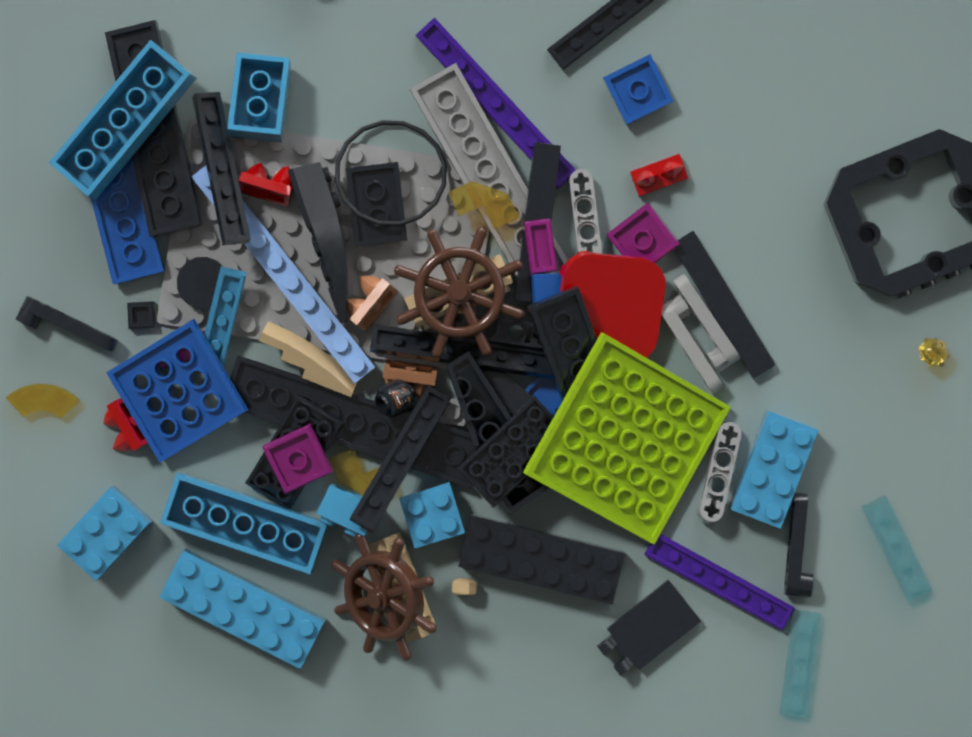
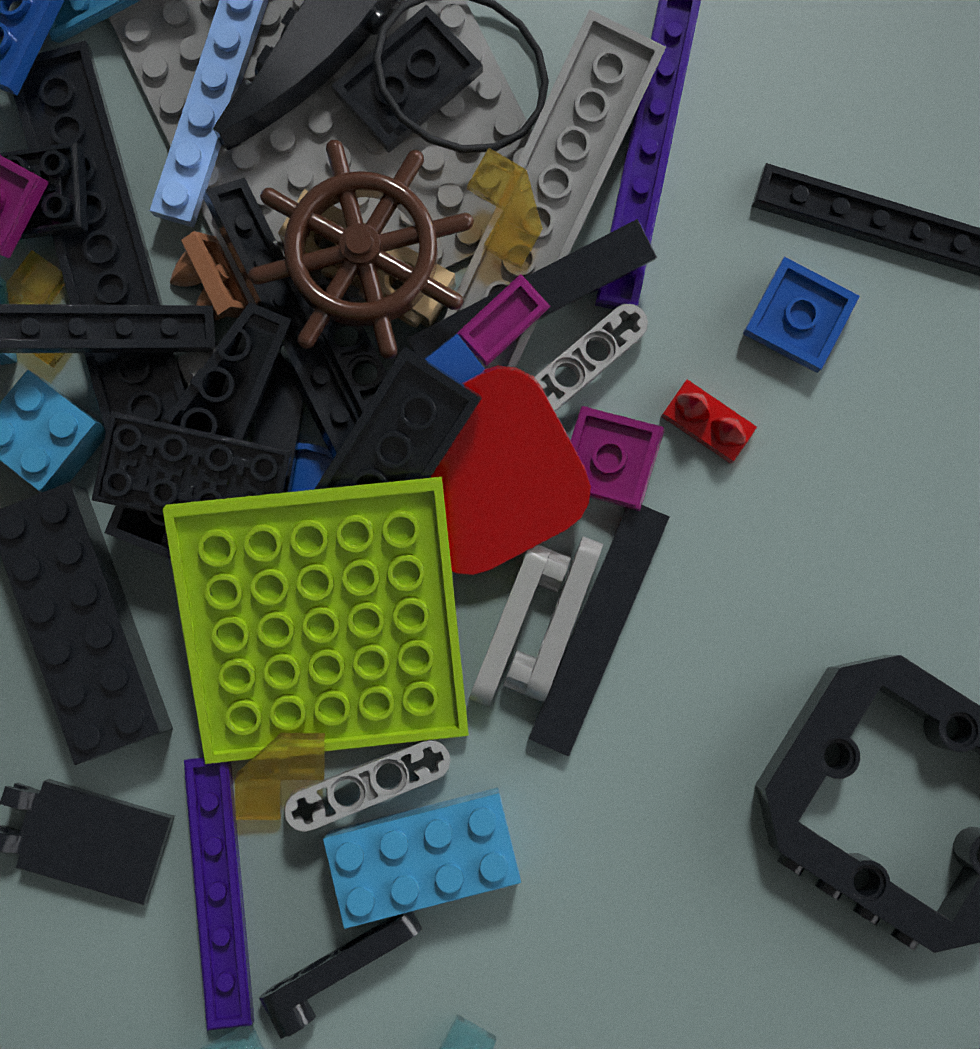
camera: 55 degrees right, 5 degrees down
(317, 364) = (143, 140): tan slope -> none
(378, 294) = (272, 162): nougat tile -> none
(394, 398) = (162, 272): black head -> none
(678, 504) = (284, 758): none -> clear yellow tile
(933, 352) = (742, 965): clear yellow piece -> none

